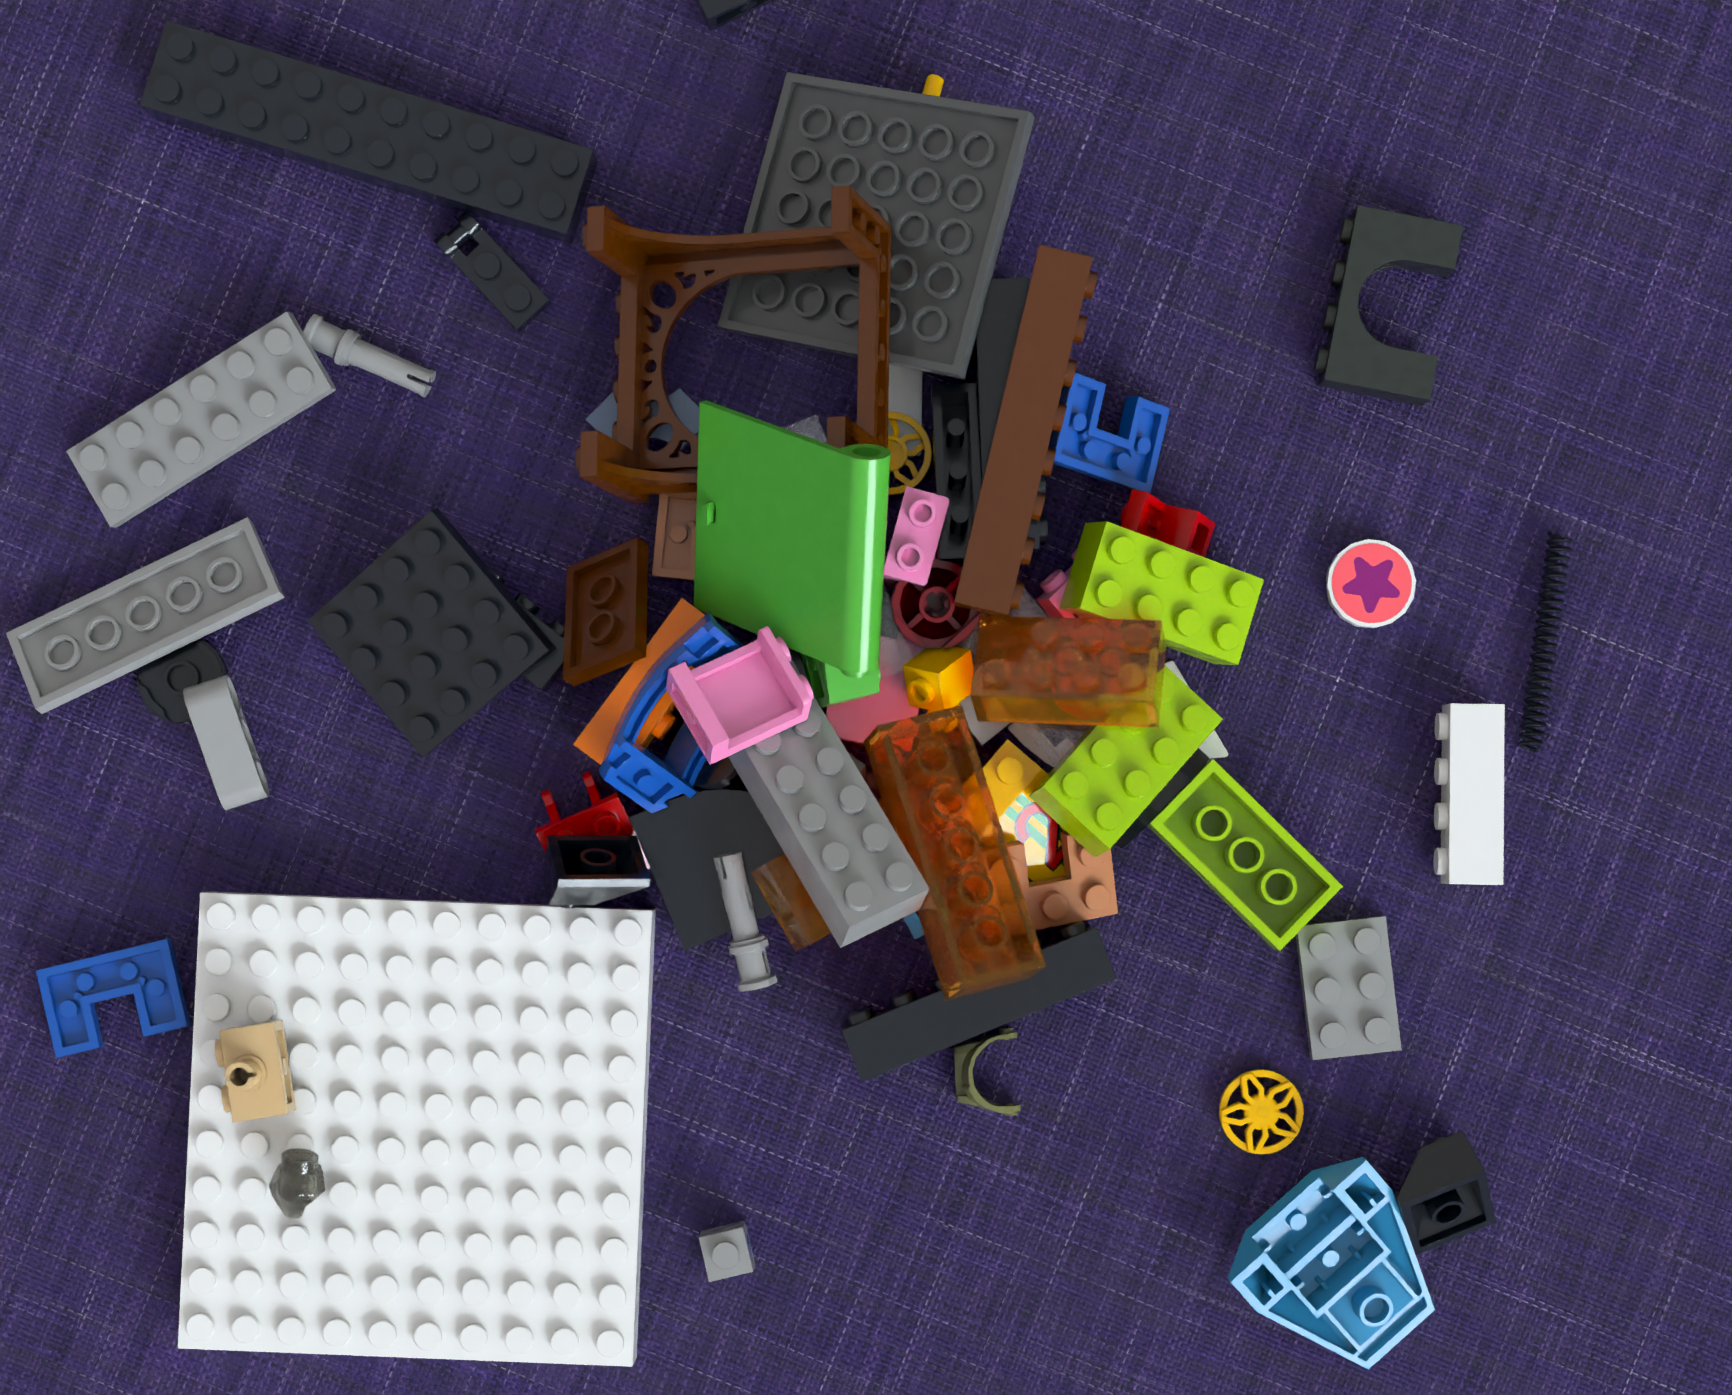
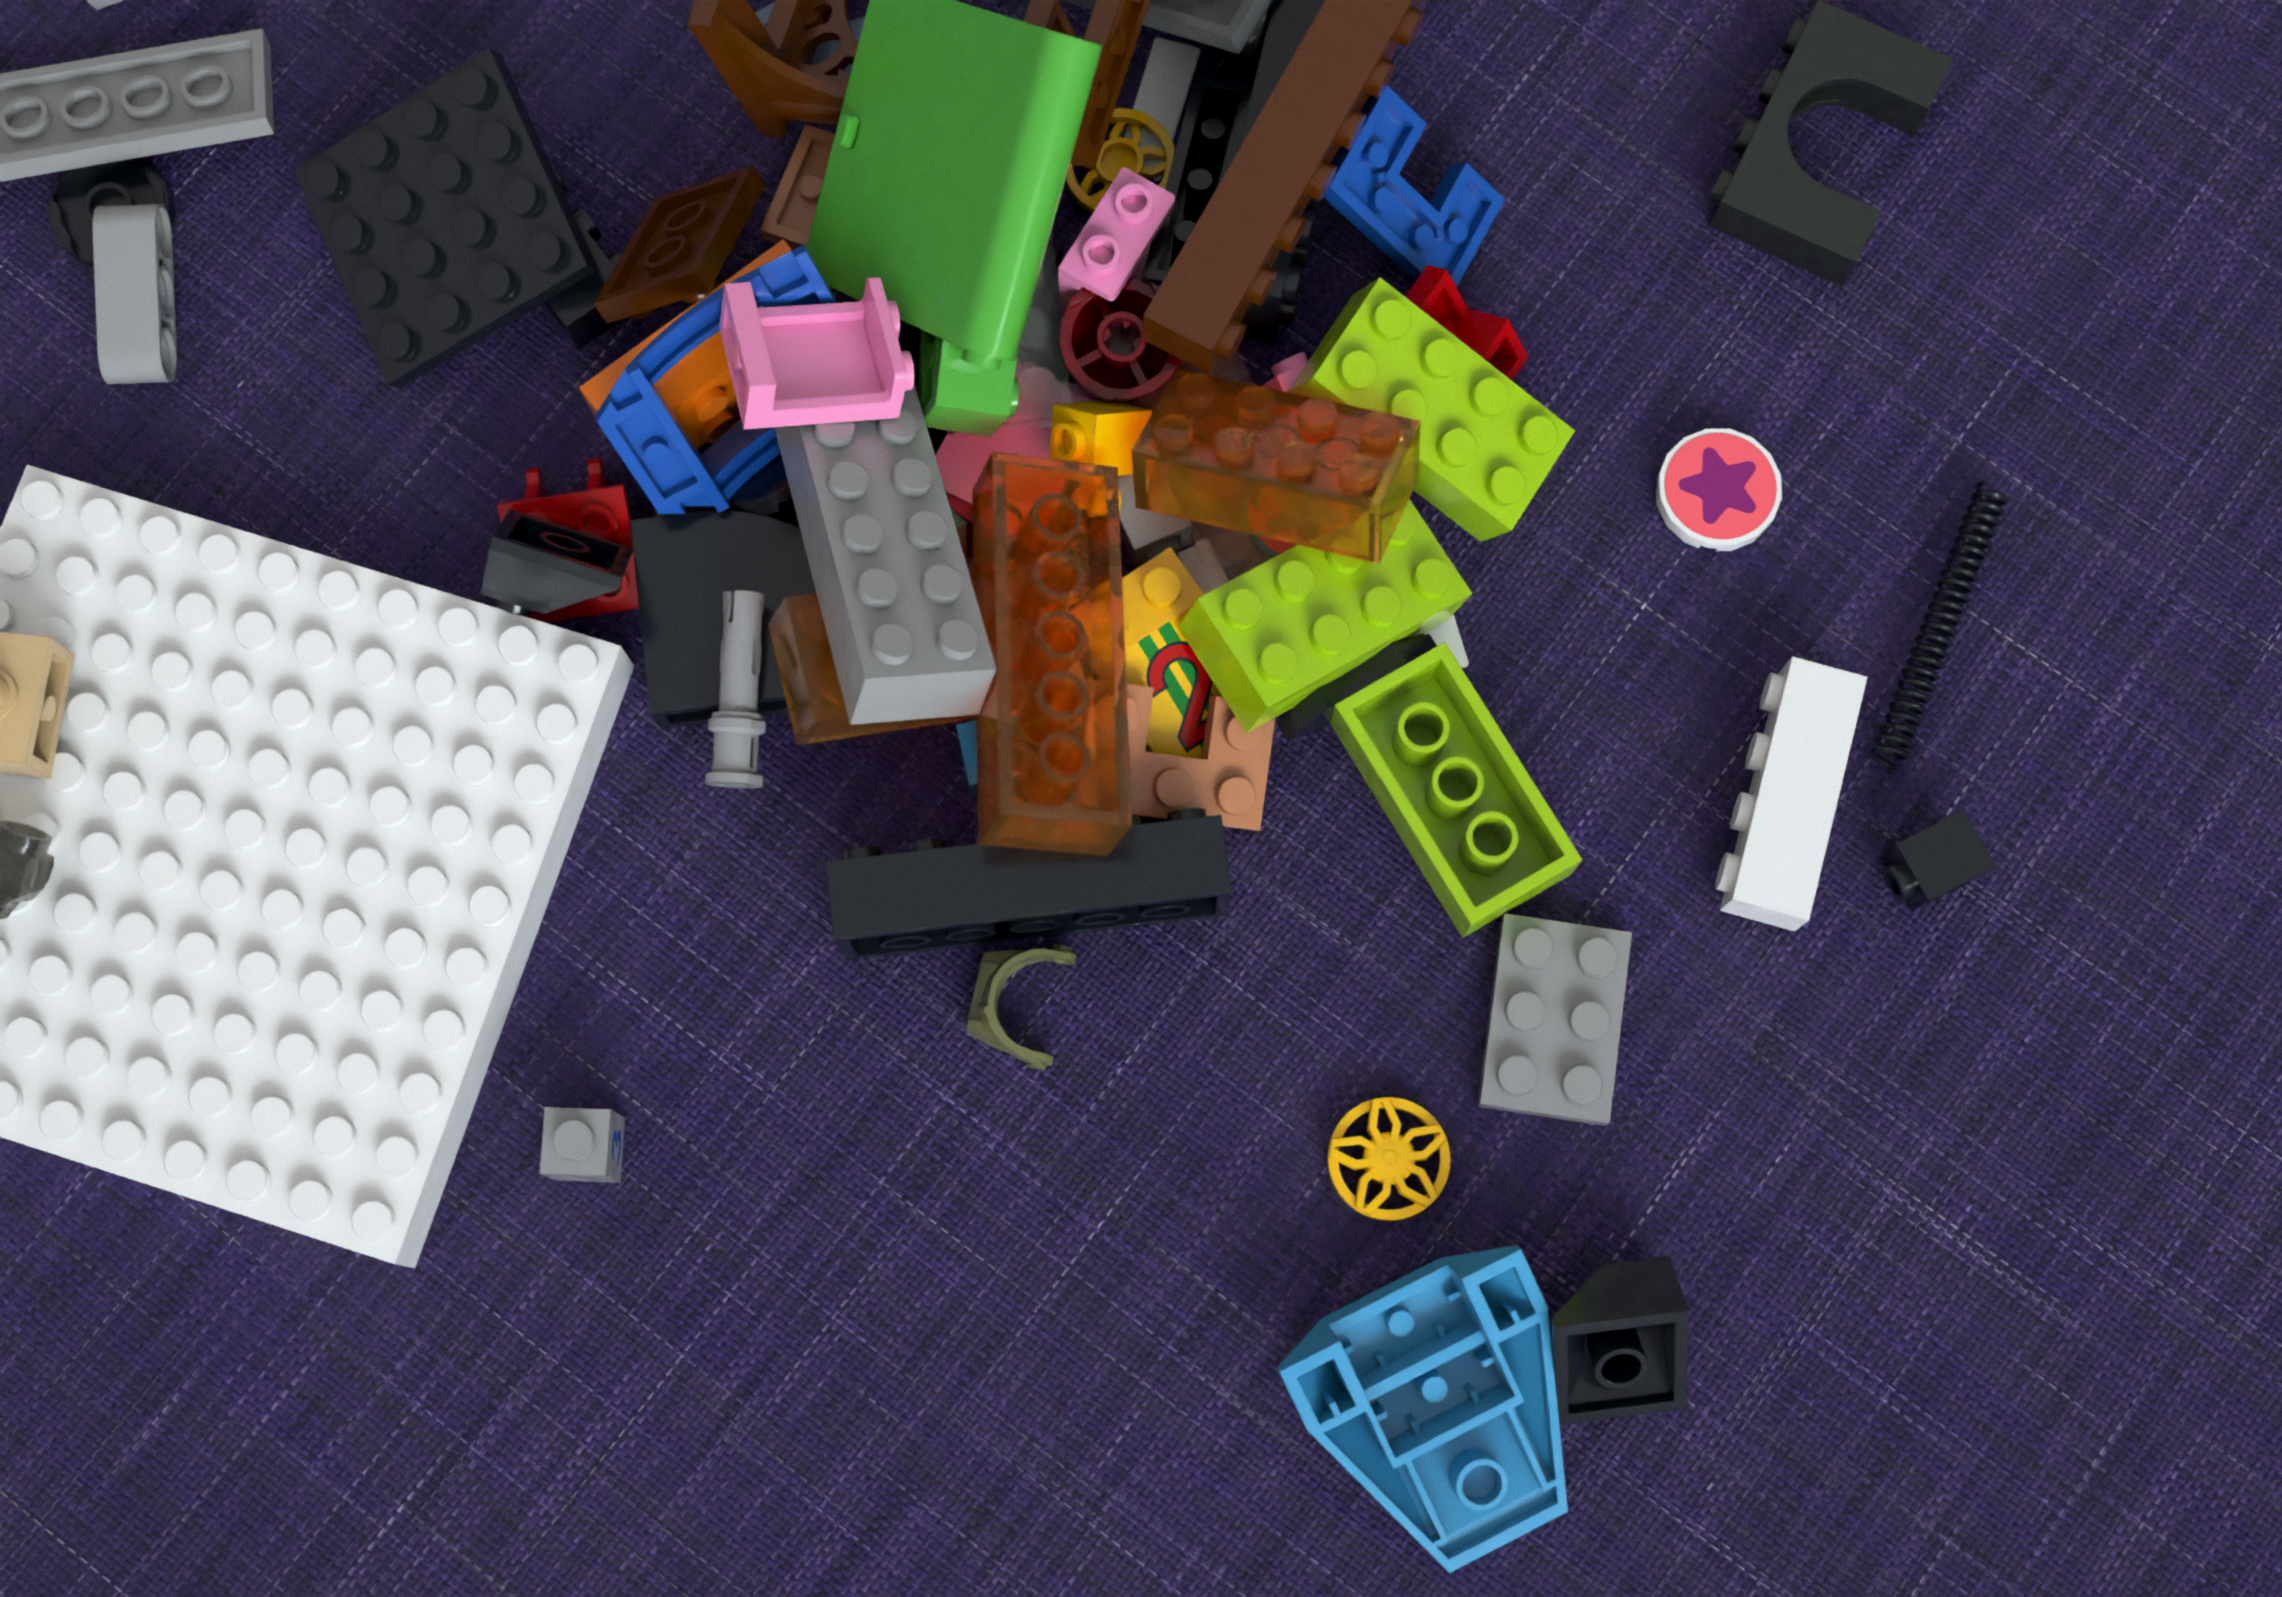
camera: 15 degrees right, 10 degrees down
(1578, 814) = (1936, 861): none -> black brick

